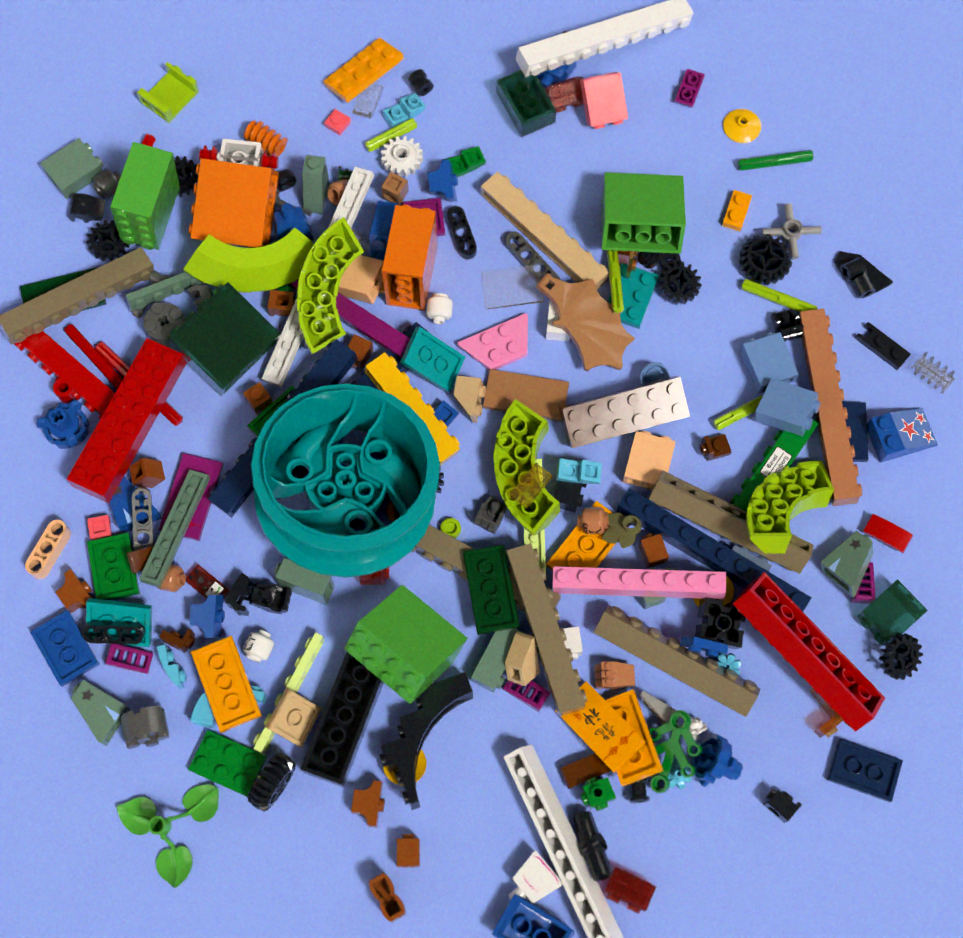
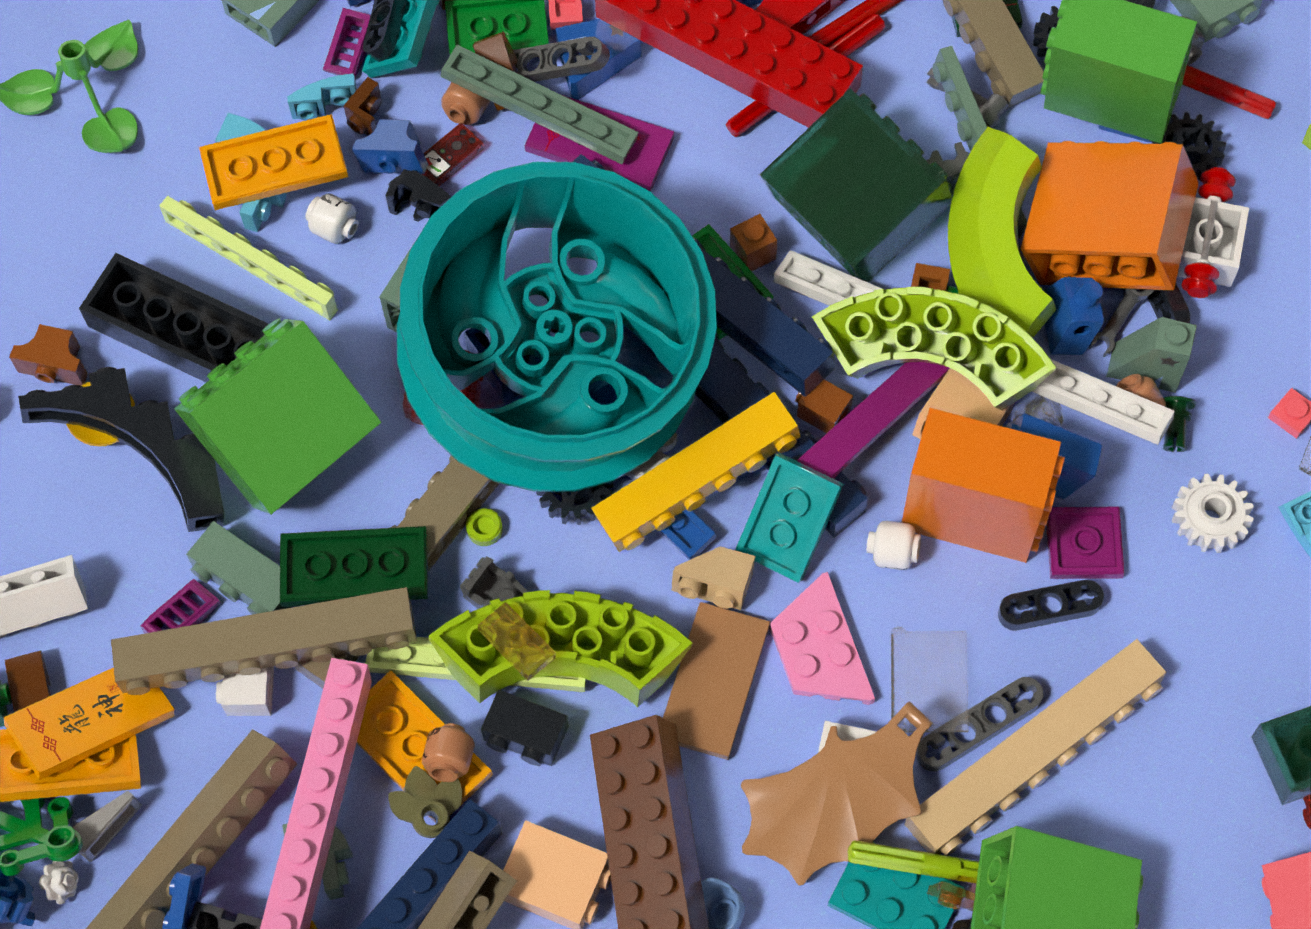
camera: 100 degrees right, 5 degrees down
(144, 727) = (232, 53): dark grey brick -> none
(147, 473) = (642, 74): dark orange brick -> none
(161, 320) = (909, 104): dark grey brick -> none
(227, 763) = (159, 167): green plate -> none
(268, 139) = (1256, 286): orange piece -> none
(270, 598) = (401, 235): black hand -> none
(271, 782) = (110, 216): black gear -> none
(293, 717) = (205, 256): tan tile -> none
(384, 137) = (1263, 502): lime axle -> none
(394, 188) = (1140, 490): medium nougat brick -> none
(444, 181) = (1152, 578): blue brick -> none
(467, 161) = (1196, 623): green slope -> none
(522, 659) = (223, 599): tan slope -> none
(579, 472) = (541, 737): medium azure slope -> none
(614, 675) = (175, 758): nougat hand -> none
(653, 550) = (384, 858): dark orange brick -> none

